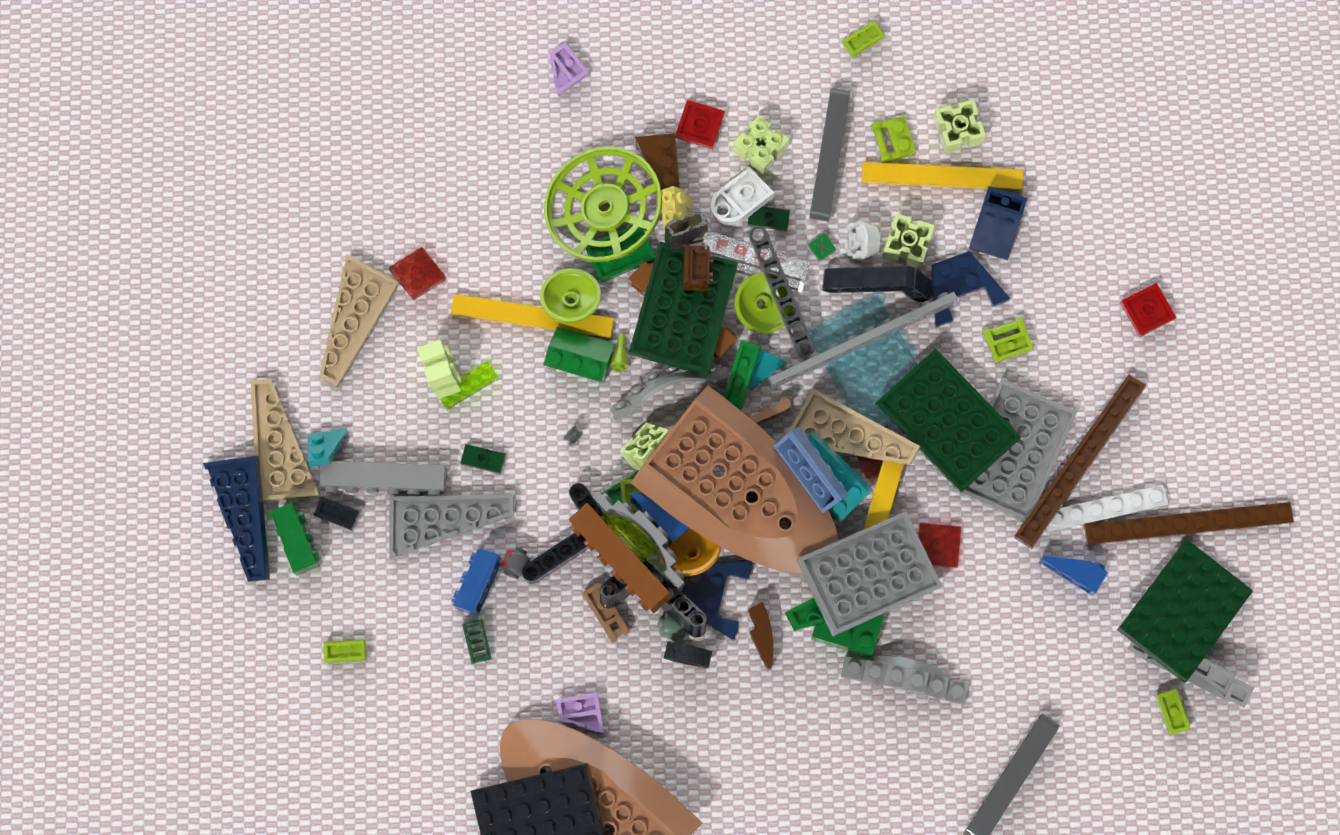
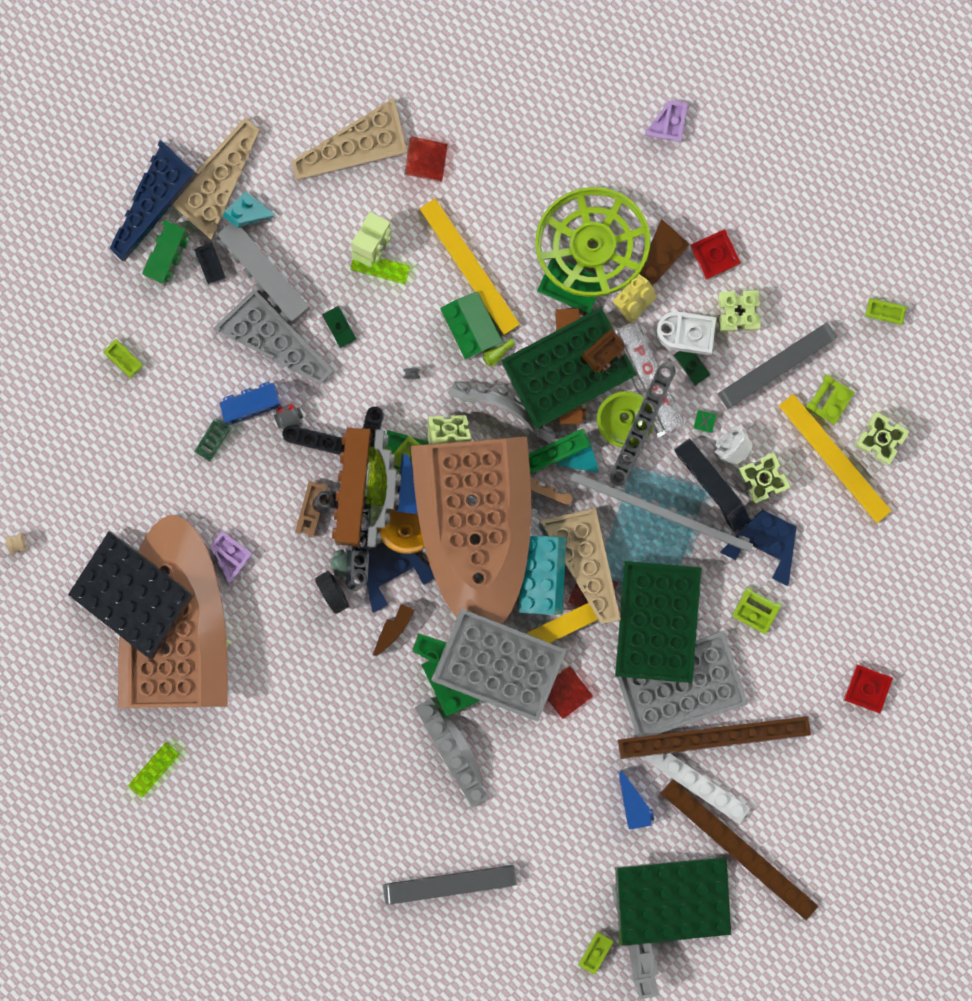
camera: 45 degrees right, 10 degrees up
(570, 286) = (511, 270): lime dish -> none
(689, 230) = (622, 319): clear smoke brick -> none
(811, 469) = (532, 562): medium blue slope -> none
(998, 223) = (834, 529): dark blue slope -> none

